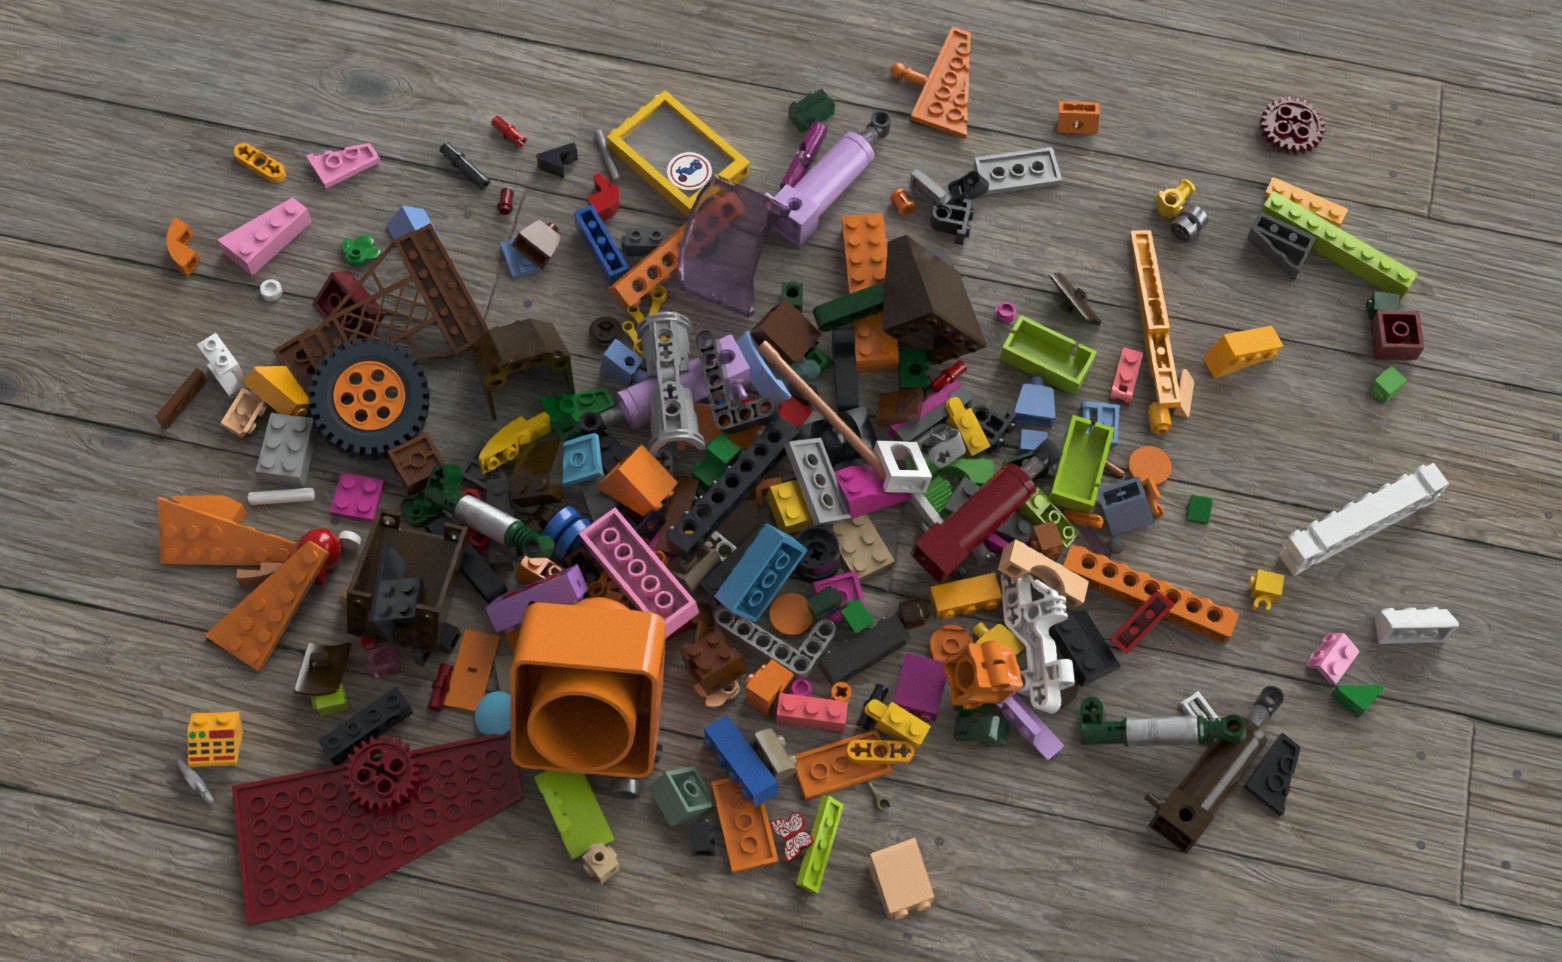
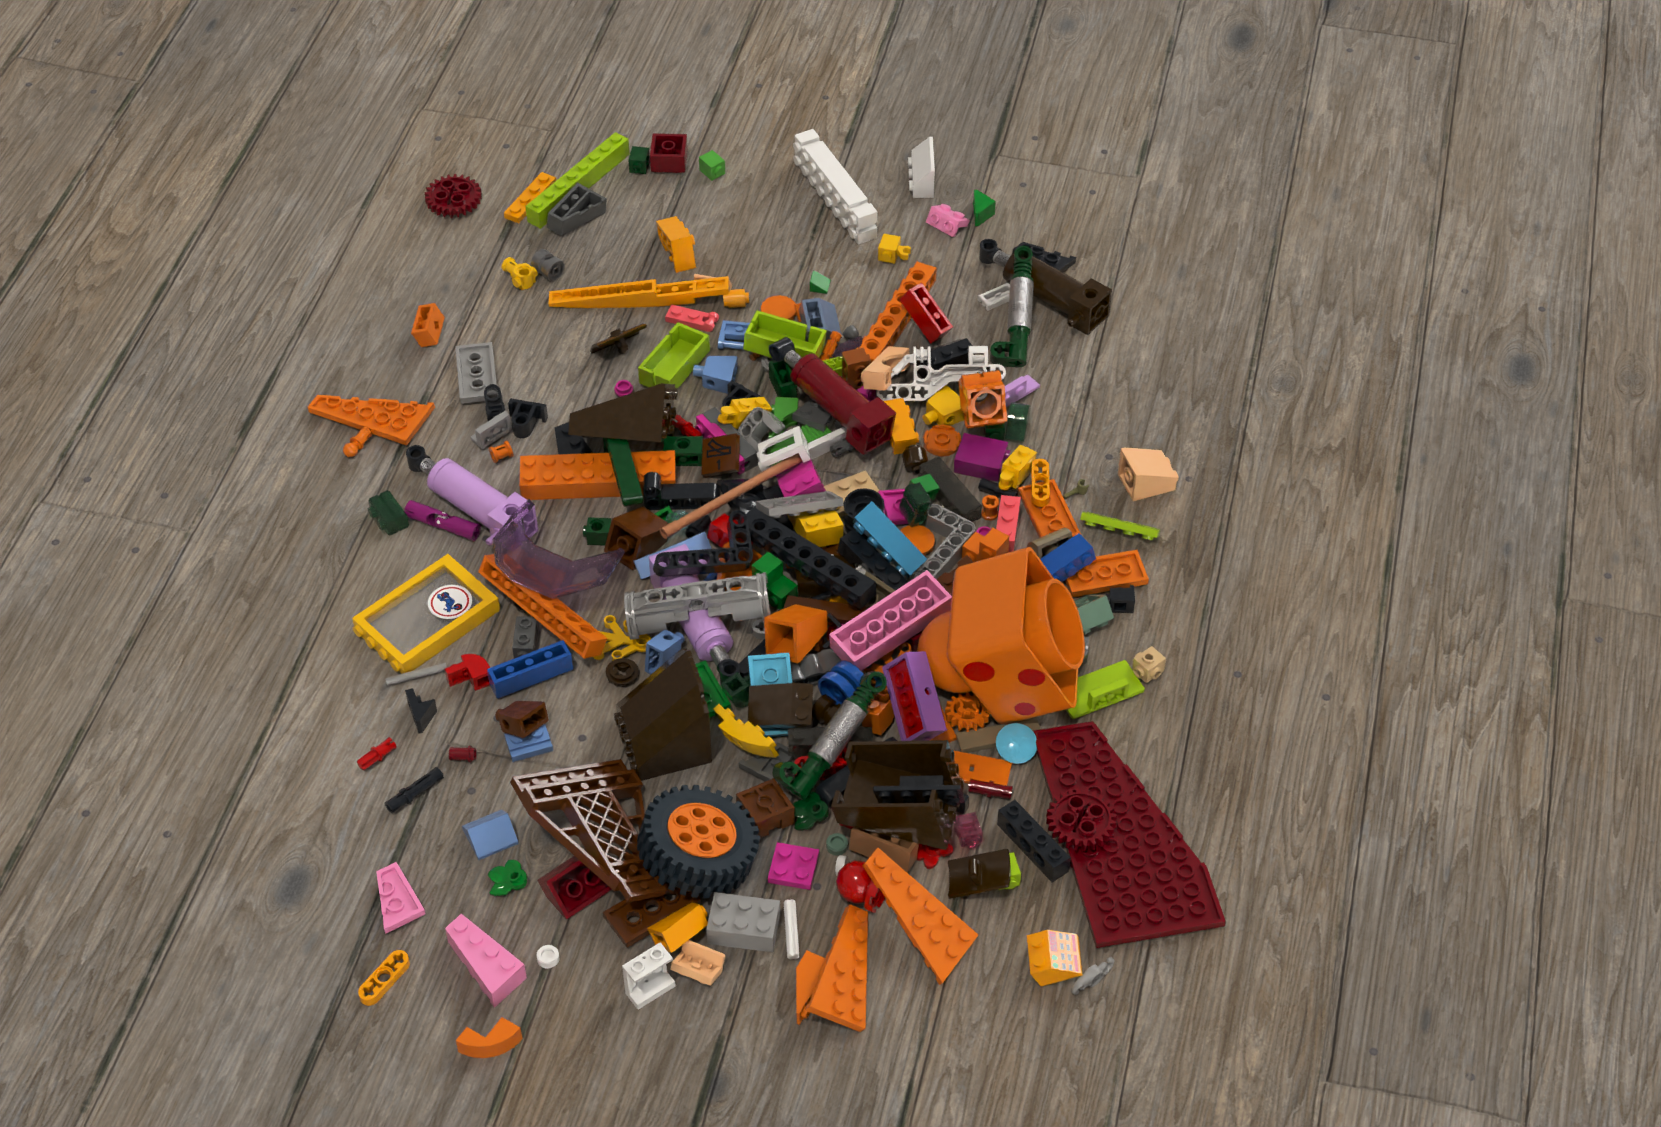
camera: 85 degrees left, 15 degrees down
(181, 398) = (677, 1022): reddish brown tile -> none
(256, 577) = (878, 934): nougat slope -> none
(793, 834) = (1115, 538): red animal -> none
(1030, 440) = (758, 376): medium blue brick -> none

